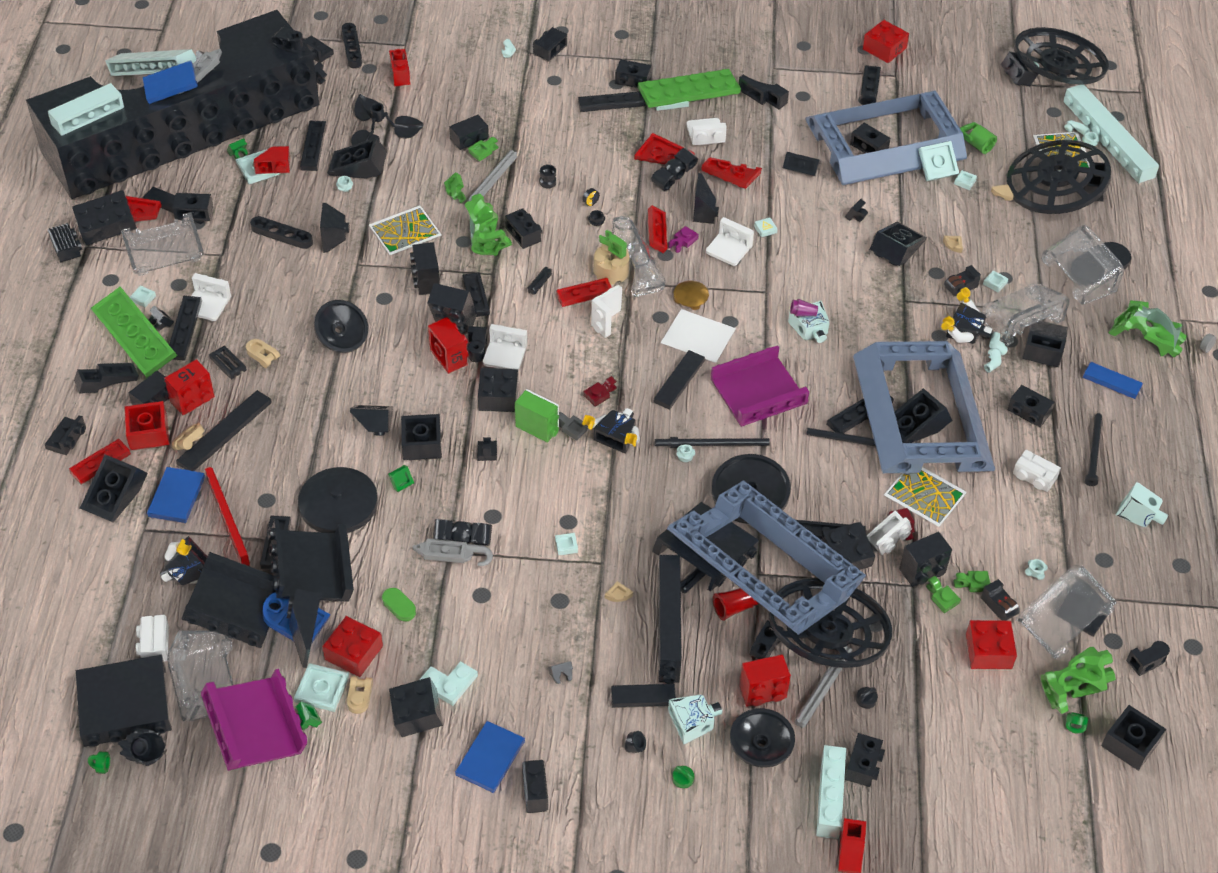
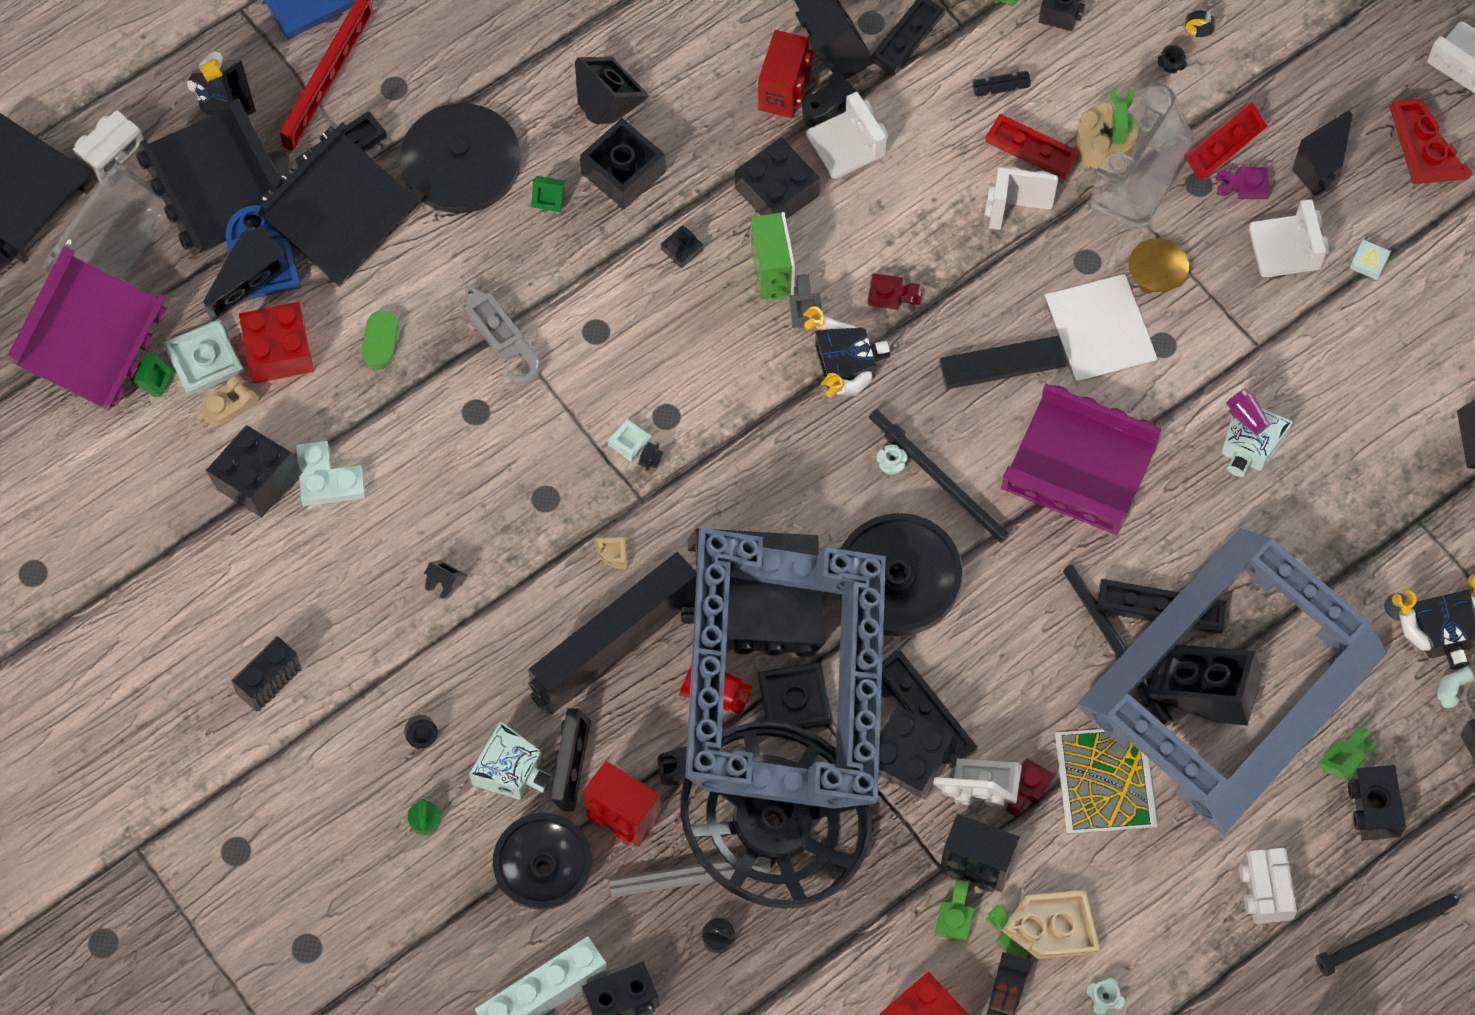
camera: 50 degrees right, 15 degrees up
(463, 532) = (532, 320): black piece -> none
(490, 756) = (269, 598): blue tile -> none
(585, 540) = (650, 456): none -> black plate
(642, 695) = (494, 690): black tile -> none
(658, 150) = (1374, 40): red wing -> none
(674, 169) = (1349, 77): black piece -> none
(714, 689) = (570, 759): none -> black plate
(773, 572) = (796, 696): none -> black tile
(986, 560) = (1054, 925): none -> tan tile
(995, 356) = (1421, 704): light aqua arm -> none
(998, 401) = (1346, 757): none -> bright green plate

